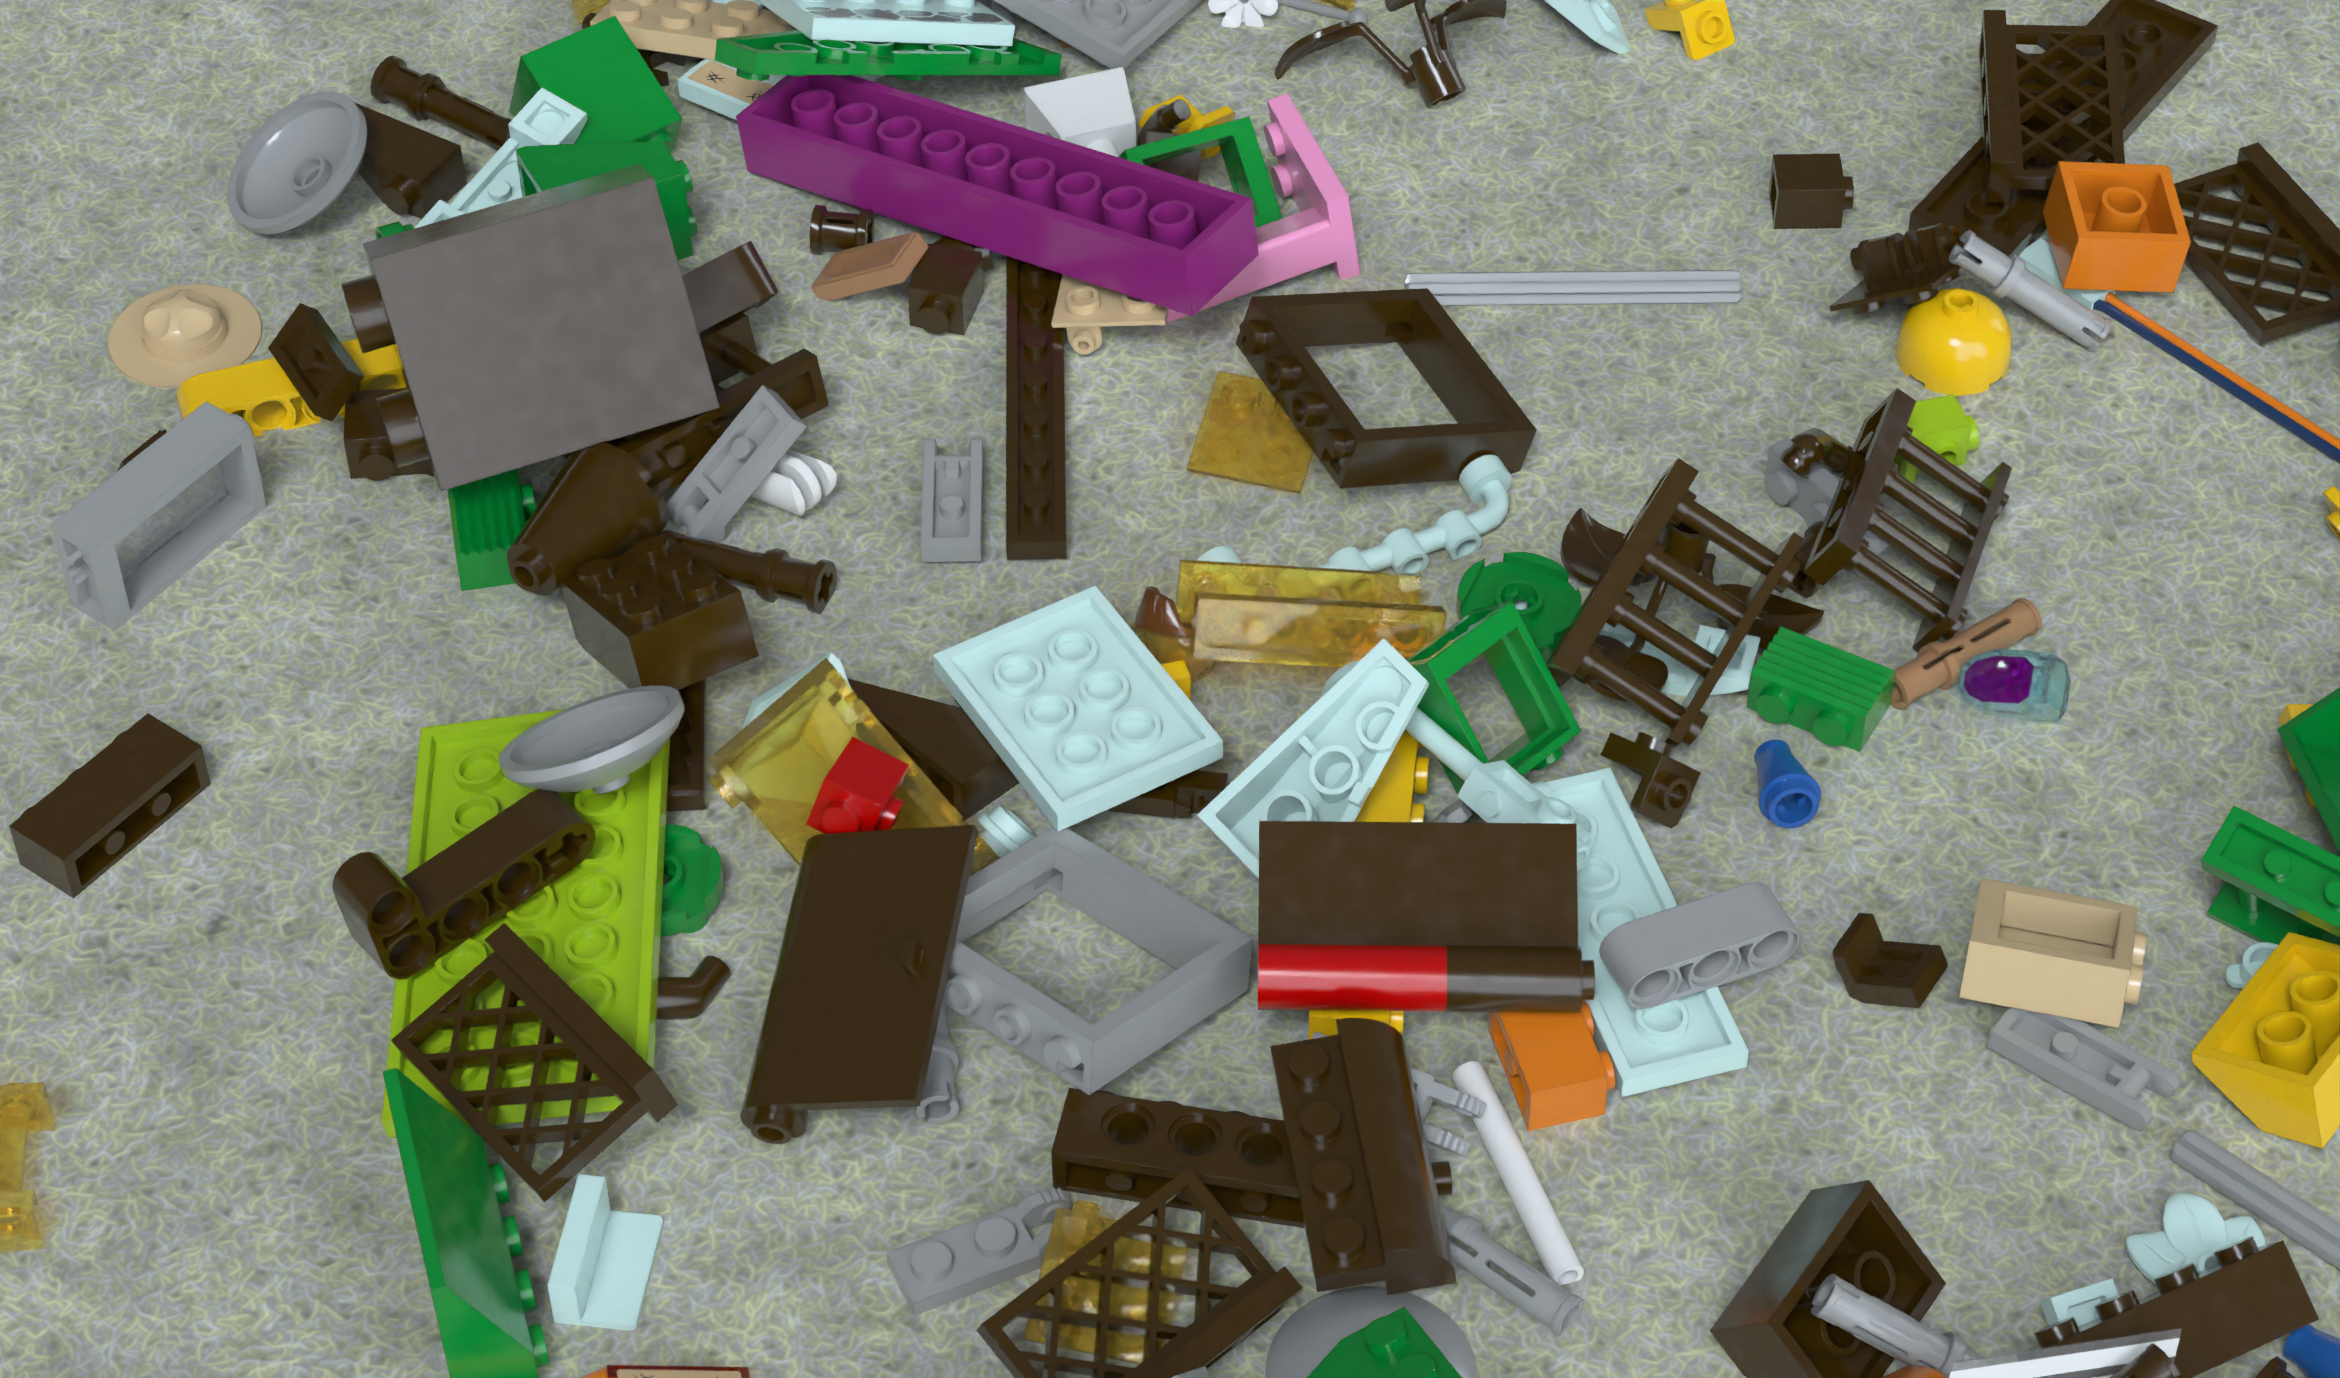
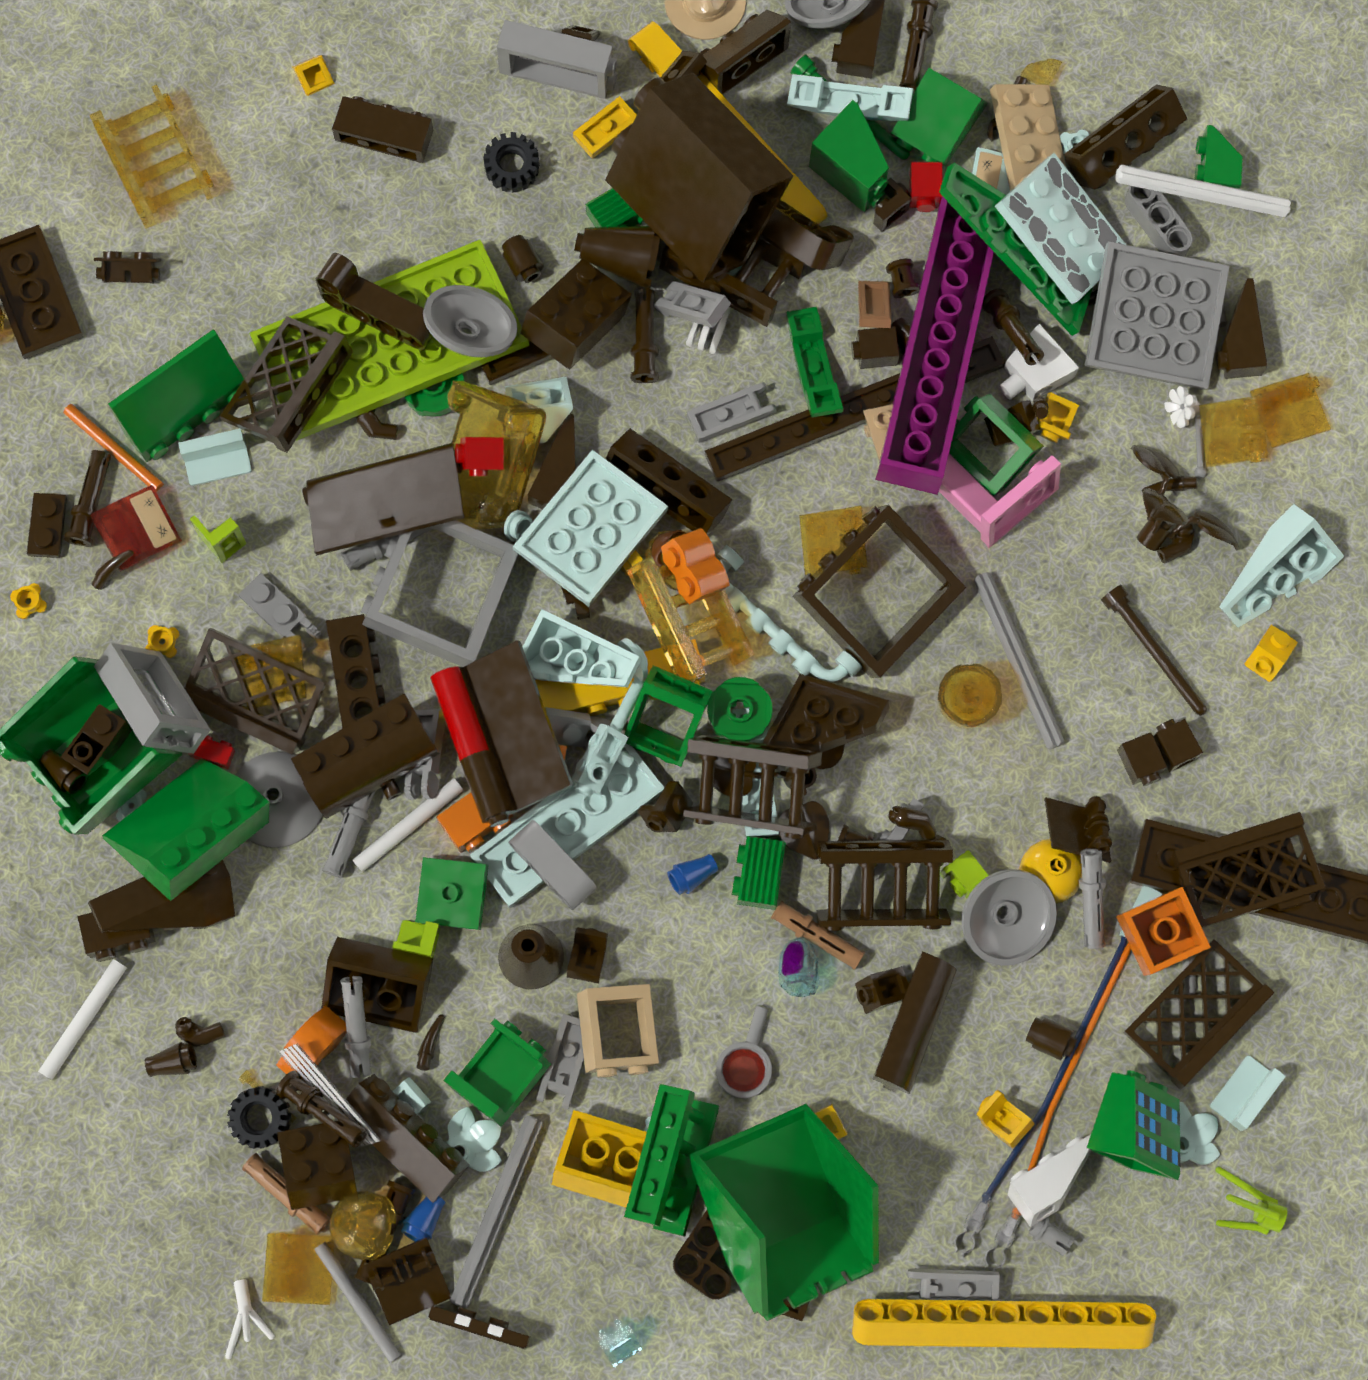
camera: 65 degrees right, 30 degrees up
(121, 1264) = (114, 267): none -> dark brown hinge
(306, 672) = (506, 146): none -> black tyre
(310, 263) = (746, 50): none -> dark brown slope
(325, 510) = (604, 127): none -> yellow plate
(496, 684) = (522, 259): none -> dark brown brick
(710, 155) = (924, 185): none -> red brick
(714, 208) = (890, 210): none -> dark brown bracket
(784, 1283) = (223, 540): none -> lime panel
(931, 380) = (812, 362): none -> green slope
(1041, 100) = (1007, 318): none -> dark brown pin
(1115, 560) = (685, 493): none -> dark brown brick
(1243, 562) = (695, 566): none -> orange brick
(1362, 50) = (1180, 484): none -> dark brown helmet
(1471, 69) = (1180, 545): none -> dark brown arm
(1532, 151) = (1118, 602): none -> dark brown piece
(1573, 507) = (825, 716): none -> dark brown plate
(1621, 334) = (974, 683): none -> clear yellow cylinder
(1688, 1131) = (452, 893): none -> green plate
(1760, 1208) = (418, 938): none -> lime panel
(1797, 134) = (1177, 744): none -> dark brown brick
(1858, 1037) = (535, 967): none -> dark brown cone
(1982, 1273) = (427, 1047): none -> dark brown helmet
(2022, 398) = (1021, 928): none -> light grey dish
(2076, 1153) = (500, 1072): none -> green panel
(2092, 601) = (881, 989): none -> dark brown bracket
(2163, 818) = (744, 1066): none -> piece
(2176, 555) = (915, 1023): none -> dark brown brick
(2247, 419) = (1051, 1038): none -> dark brown brick

